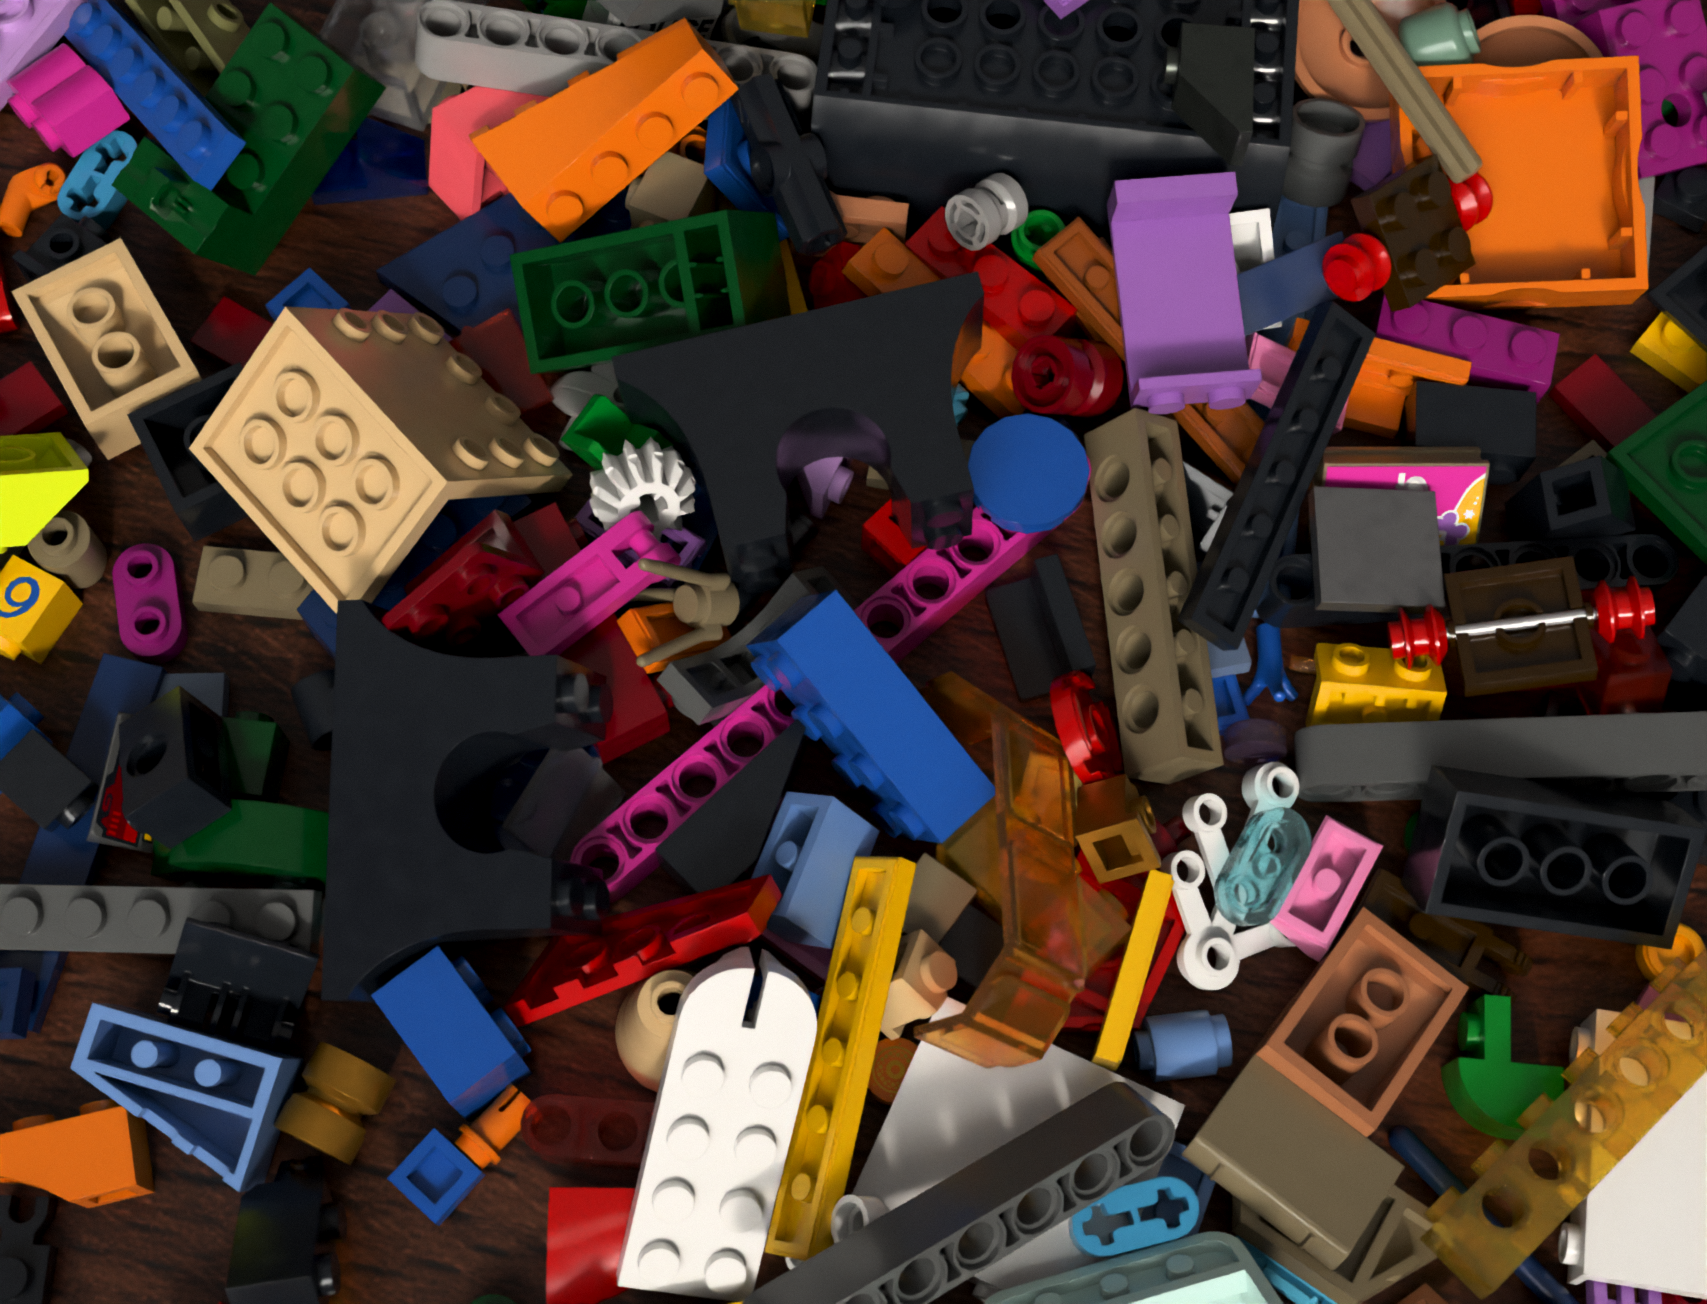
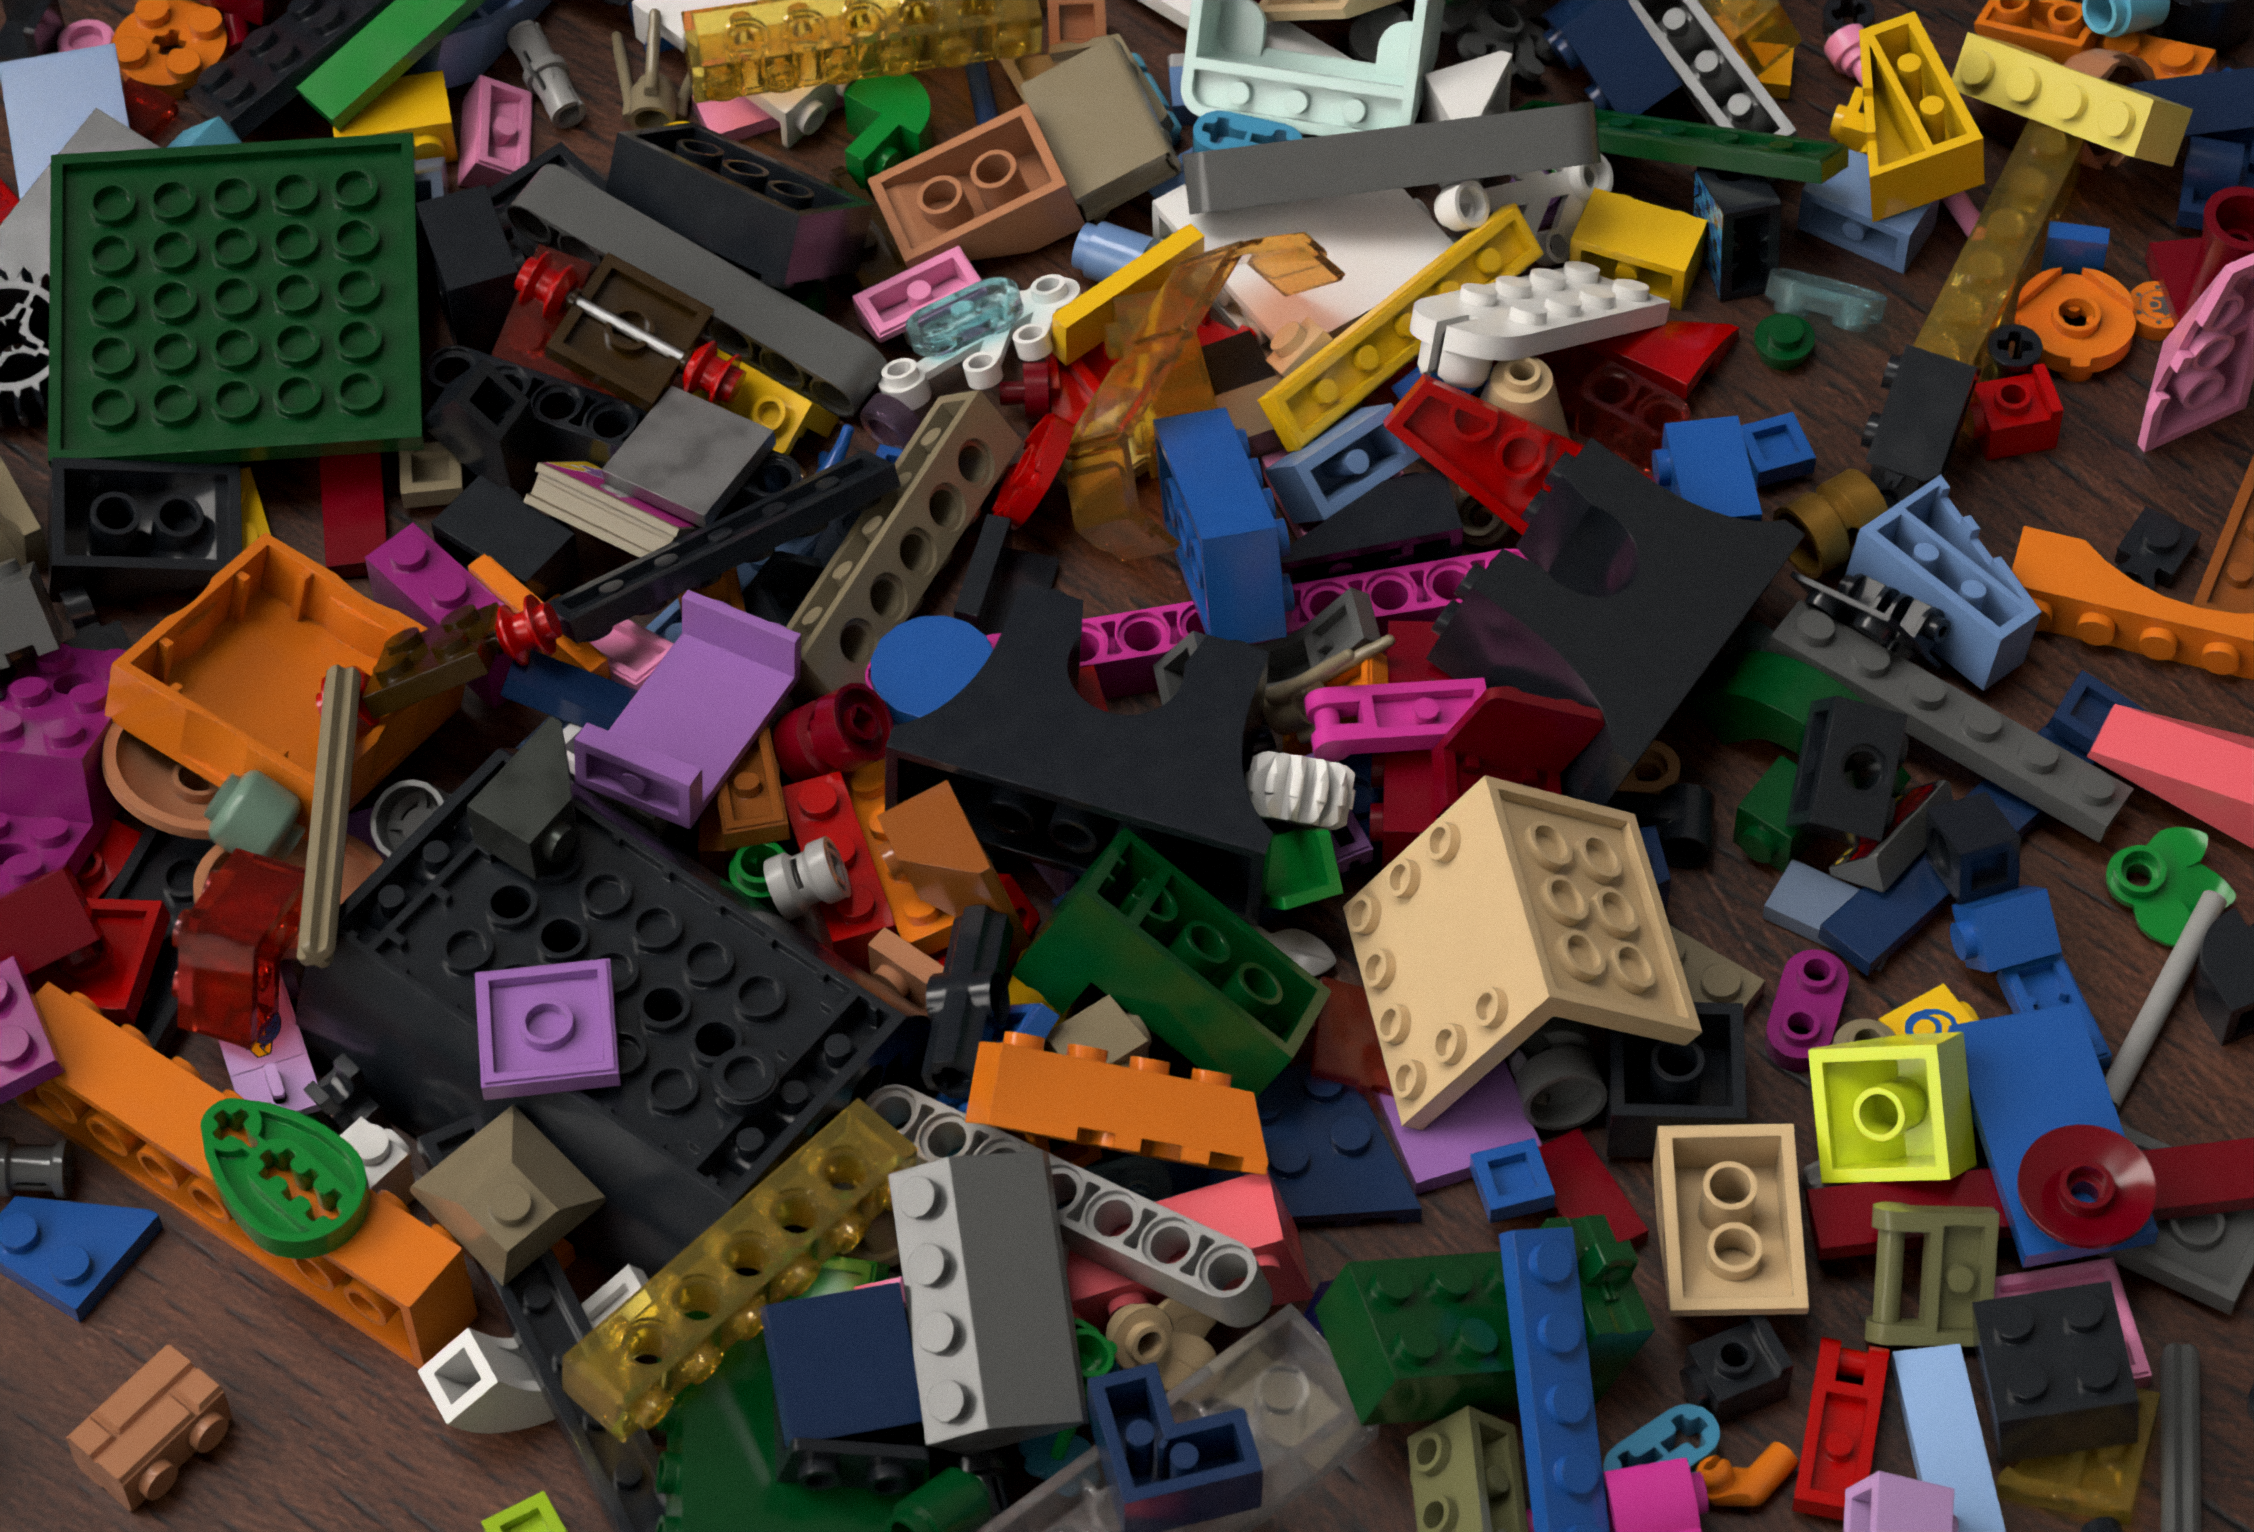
camera: 145 degrees left, 15 degrees down
(867, 254) = (944, 857): none -> dark orange slope
(1115, 829) = (1068, 373): pearl gold brick -> none

